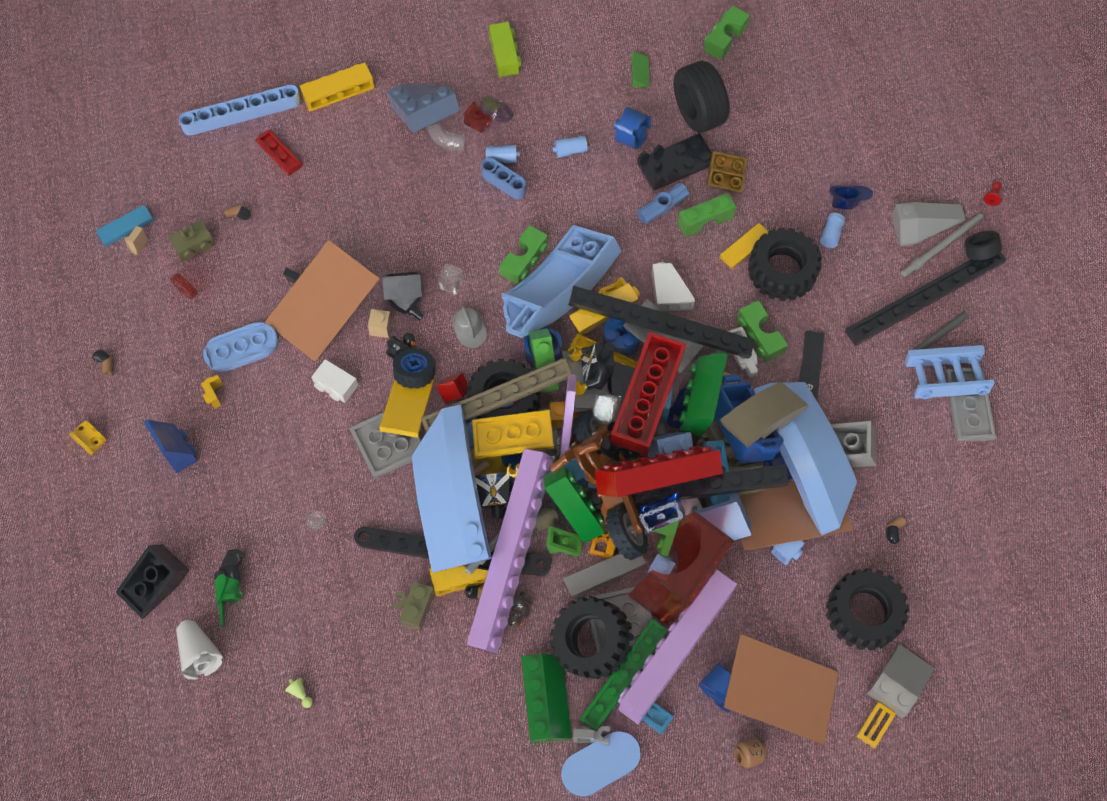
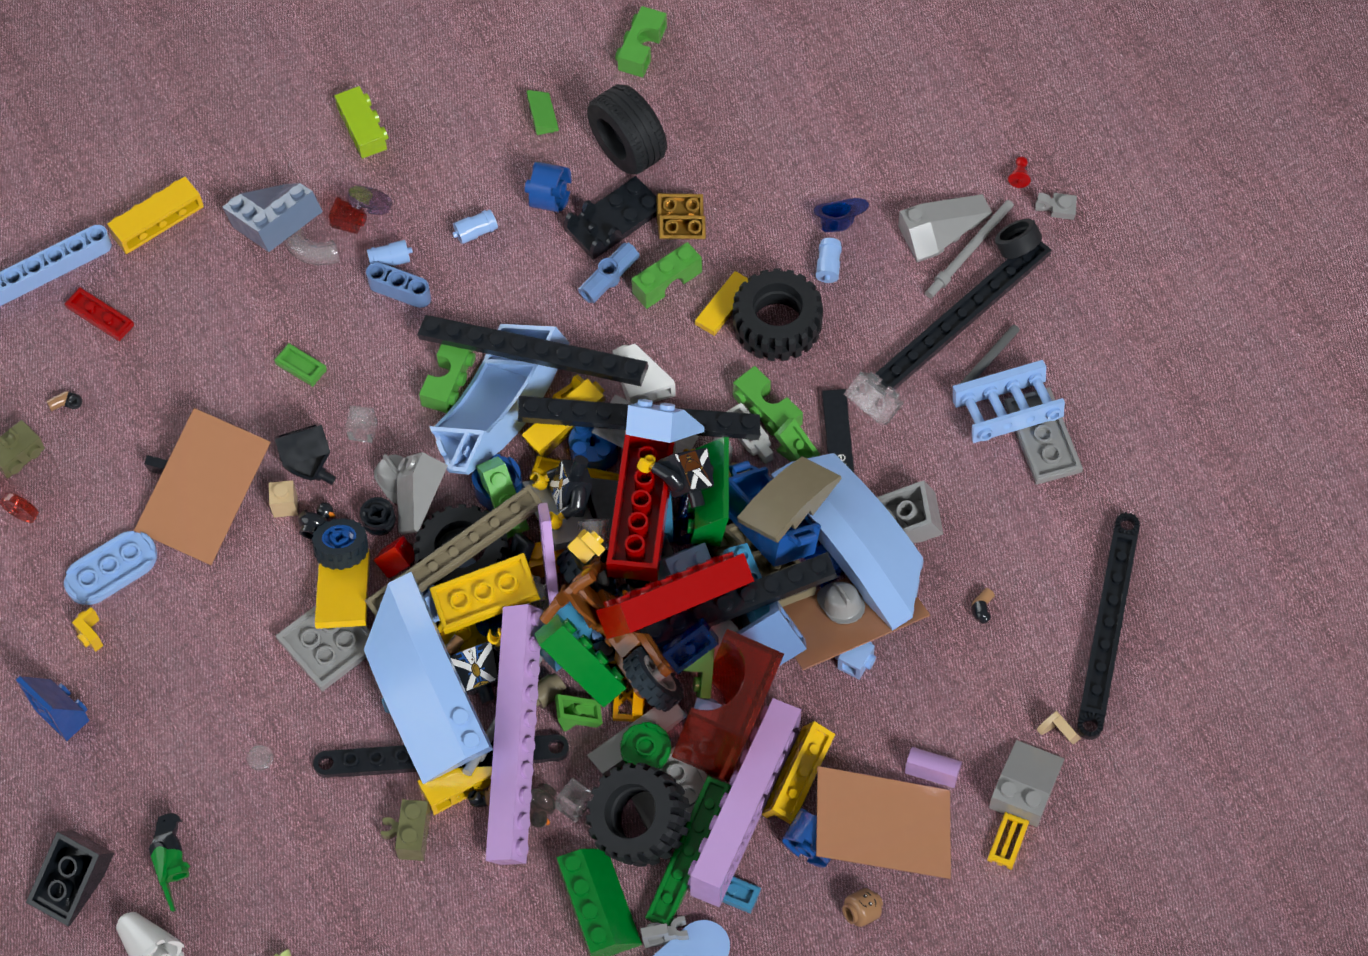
camera: 10 degrees left, 5 degrees down
(334, 381) = (242, 583): white brick -> none
(417, 223) = (300, 365): none -> bright green tile
(447, 352) = (377, 515): none -> black wheel
(480, 339) = (416, 488): none -> light grey slope
(545, 612) = (573, 800): none -> clear brick
(548, 402) = (521, 544): none -> black tile
(593, 252) = (533, 350): none -> black plate
(598, 416) = (586, 545): none -> yellow bracket
(609, 582) = (646, 744): none -> green tile
(677, 332) = (660, 422): none -> light blue slope
(686, 375) = (684, 473): none -> black torso
(723, 631) = (798, 772): none -> yellow fence
(776, 367) = (794, 442): none -> bright green slope
(785, 502) = (841, 602): none -> light grey piece
(829, 651) = (933, 767): none -> lavender brick
(845, 346) = (874, 397): none -> clear brick
(885, 591) = (973, 676): black tyre -> none
(938, 641) = (1057, 720): none -> tan tile
(991, 569) = (1108, 626): none -> black plate
(1020, 226) = (1060, 205): none -> light grey plate

